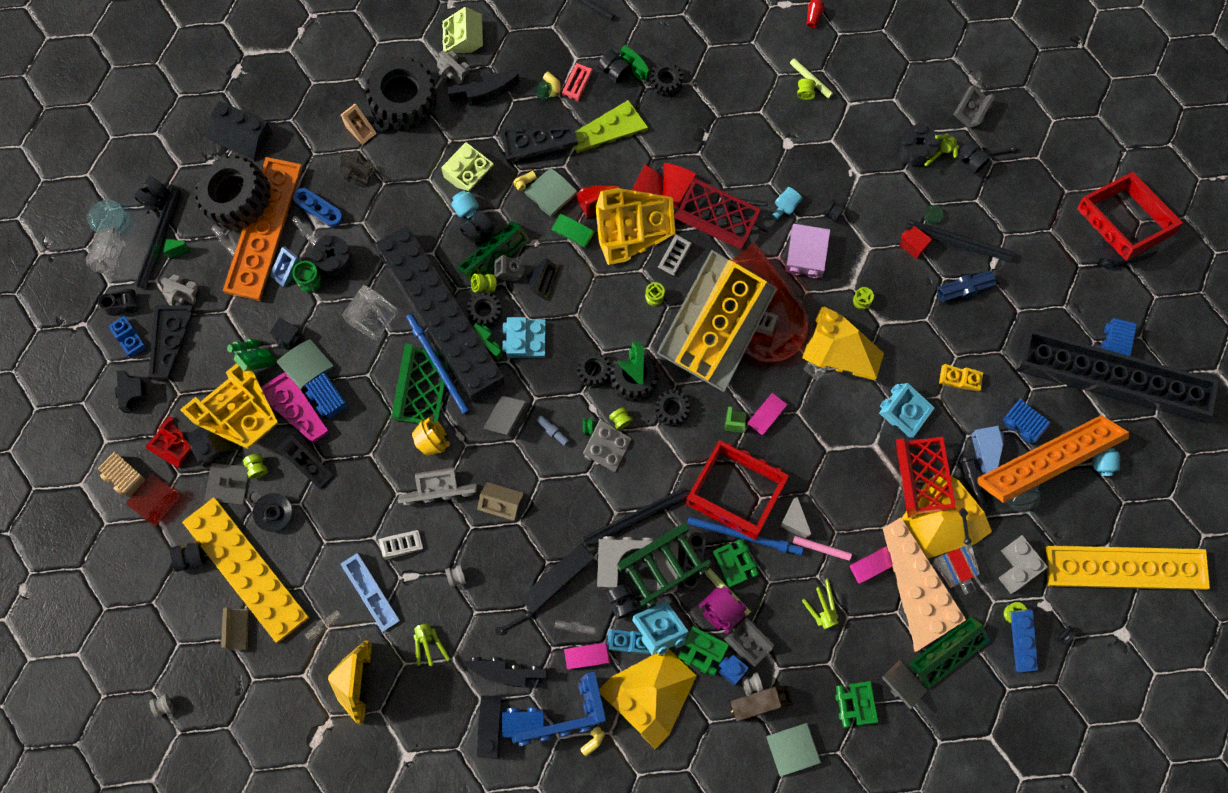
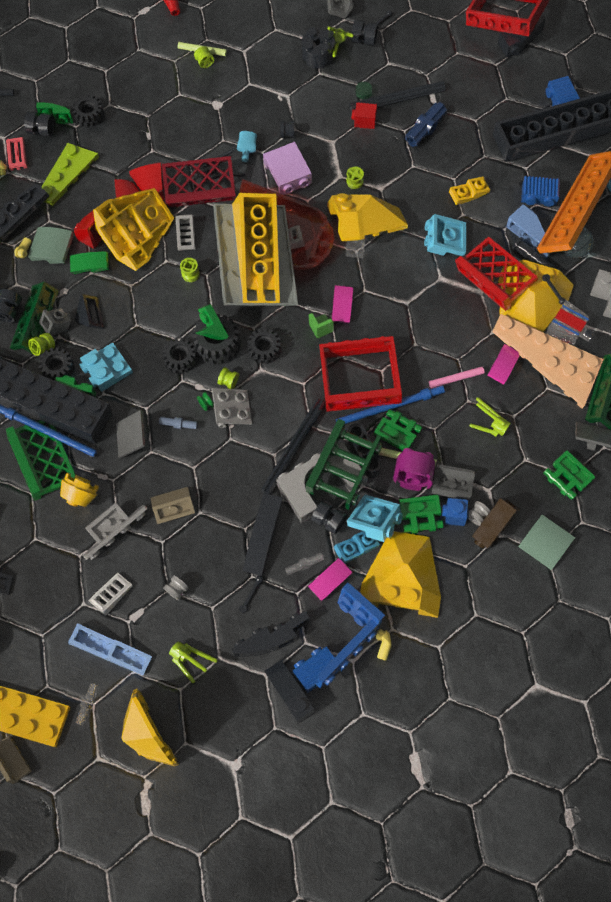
camera: 30 degrees left, 5 degrees down
(795, 520) = (421, 368): light grey slope -> none

